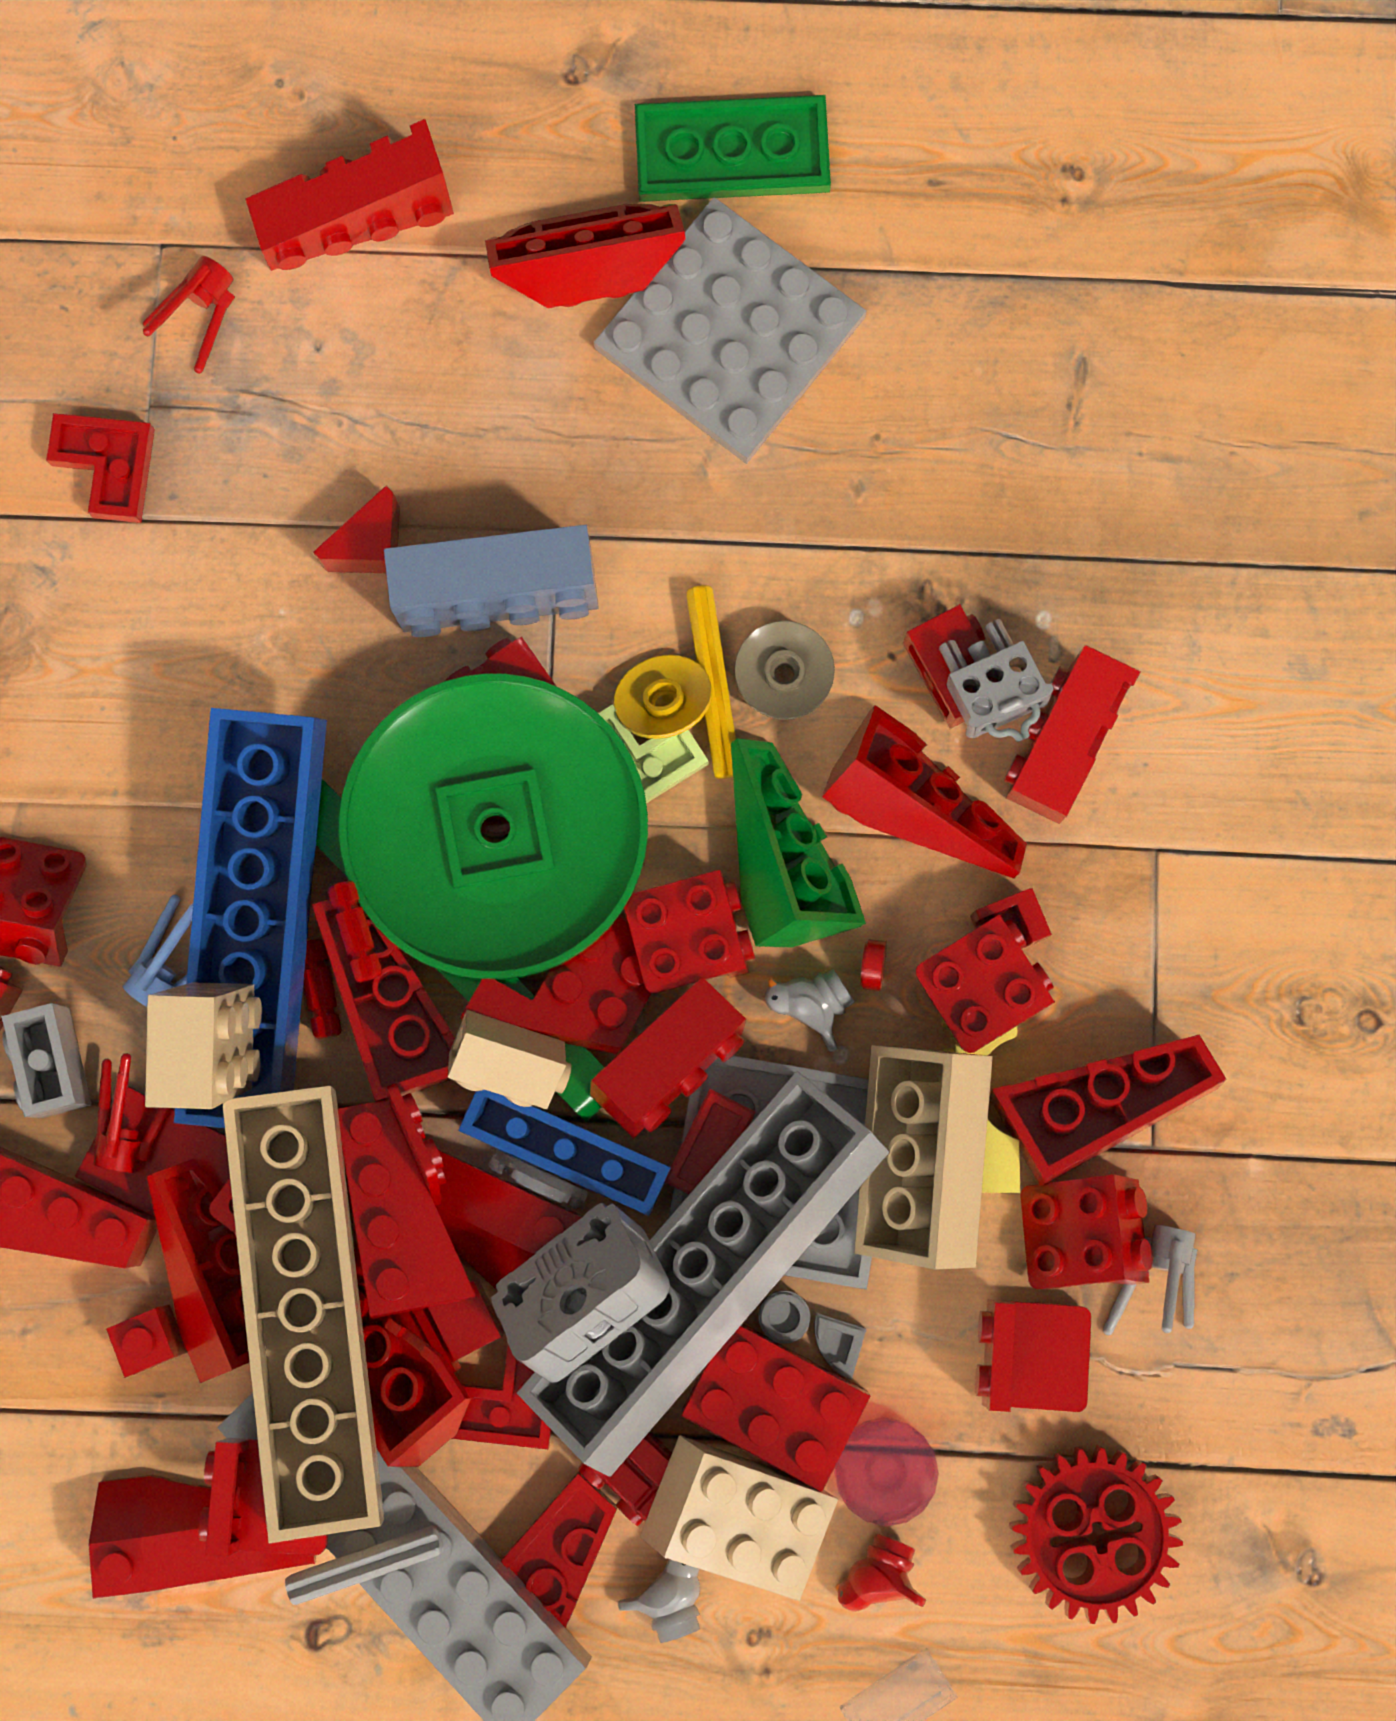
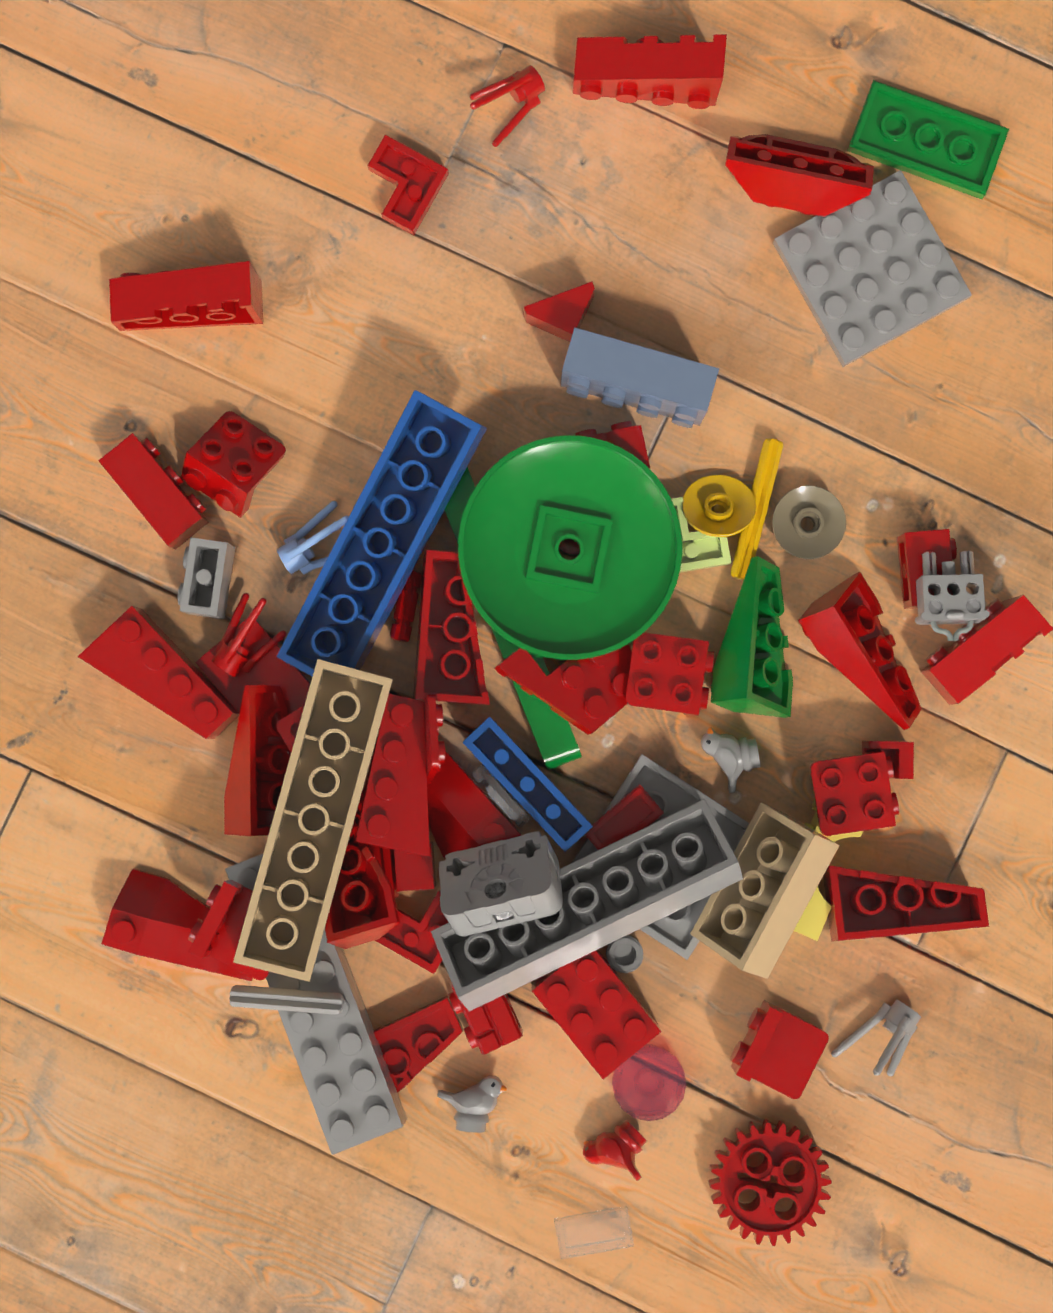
camera: 25 degrees right, 5 degrees up
(146, 1340) = (200, 791): red brick -> none
(201, 1045) = (319, 617): tan brick -> none
(354, 931) = (448, 580): red axle -> none
(508, 1061) = (515, 710): tan brick -> none
(669, 1058) = (622, 753): red brick -> none
(738, 1519) = (540, 1073): tan brick -> none
(838, 1343) = (653, 986): light grey tile -> none
(873, 964) = (783, 747): red tile -> none
(1085, 1232) = (848, 985): red bracket -> none

